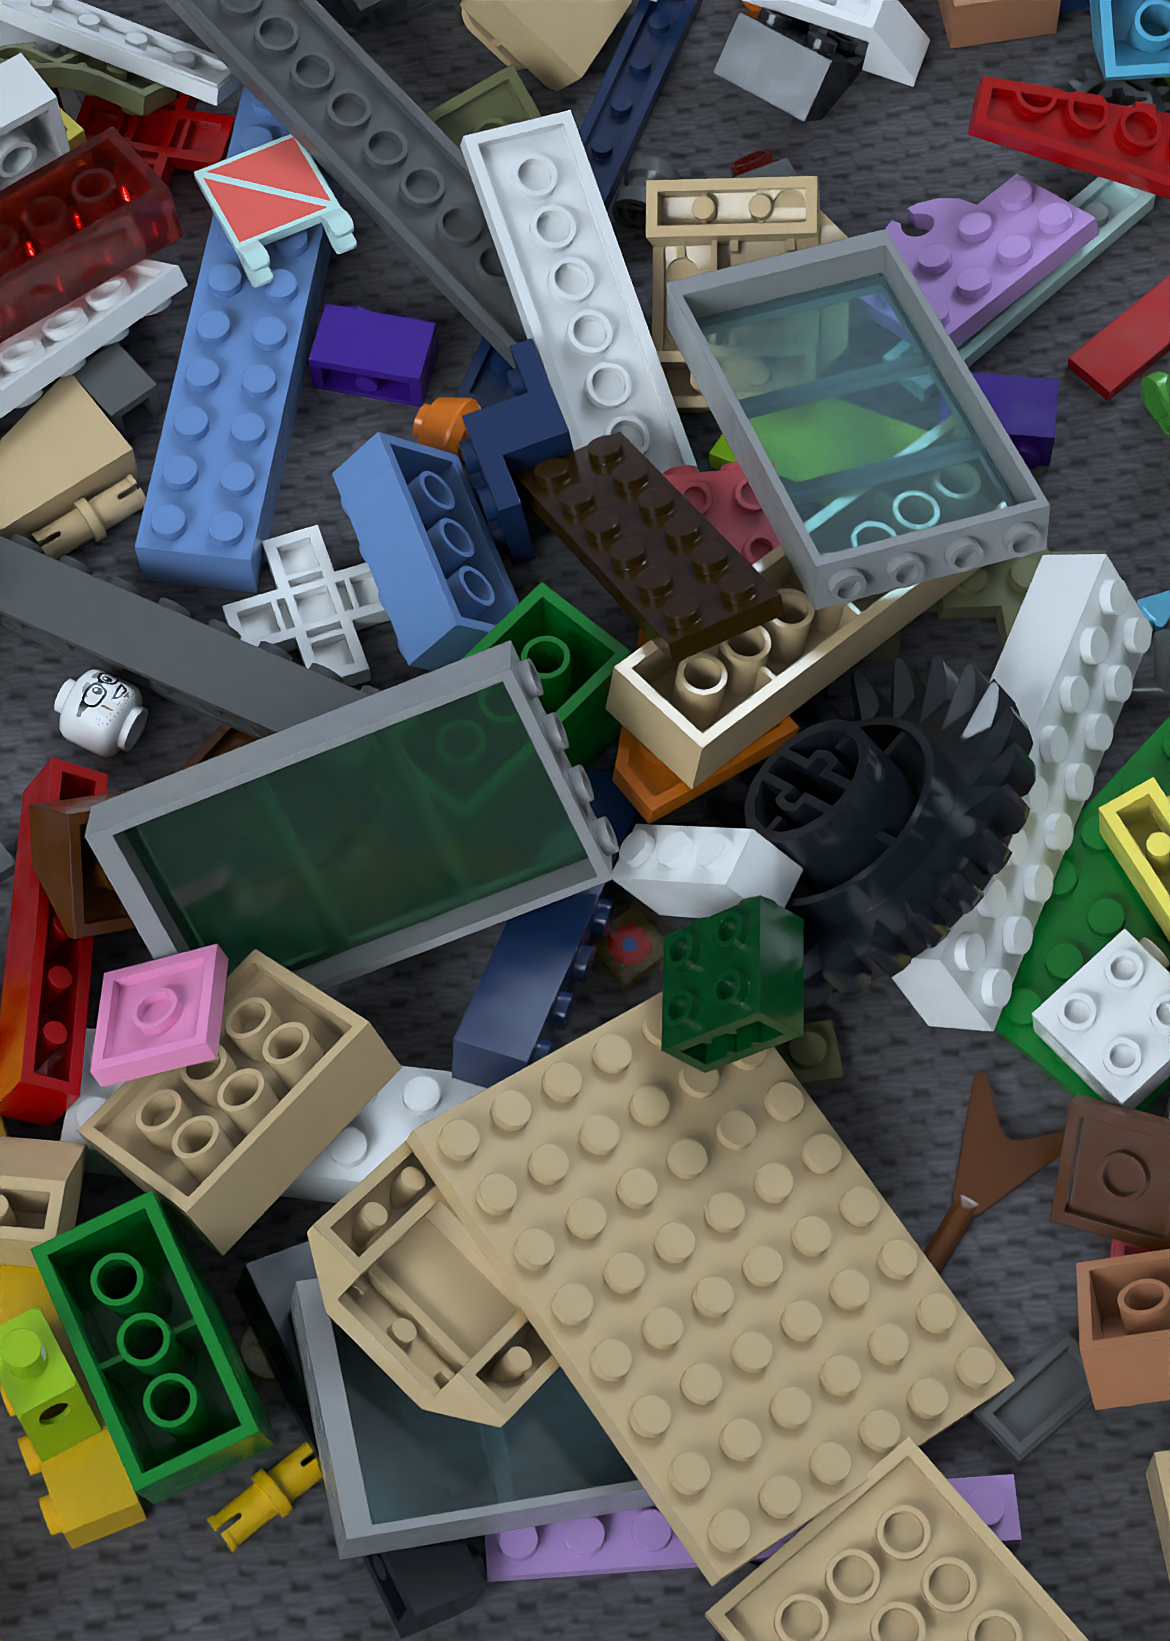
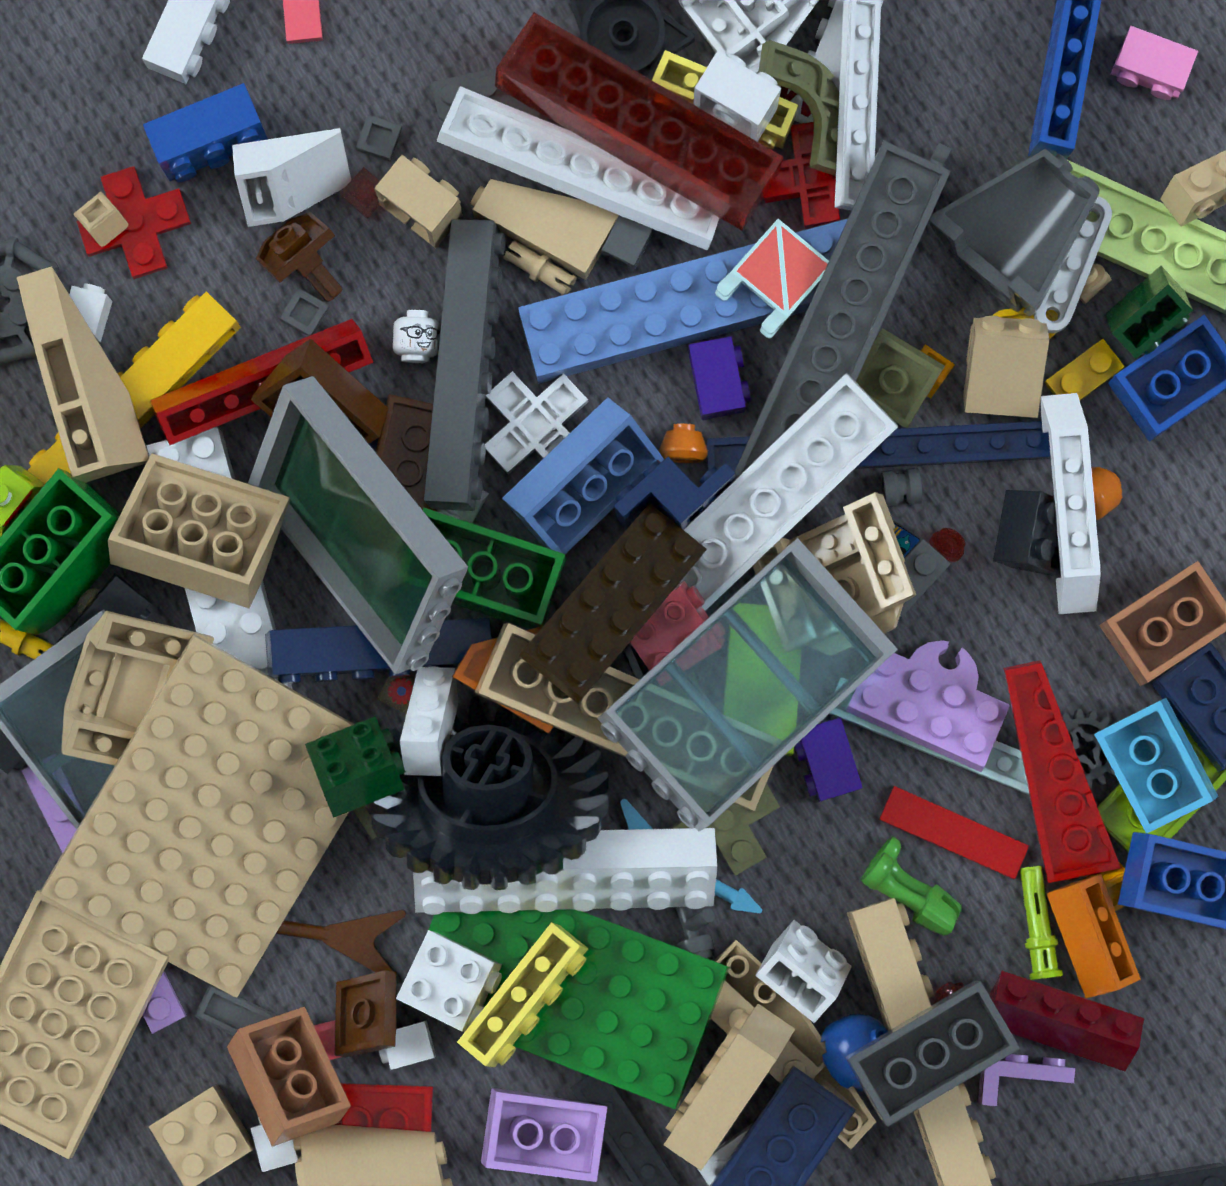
camera: 65 degrees right, 20 degrees up
(160, 1015) = (226, 467): bright pink plate -> none

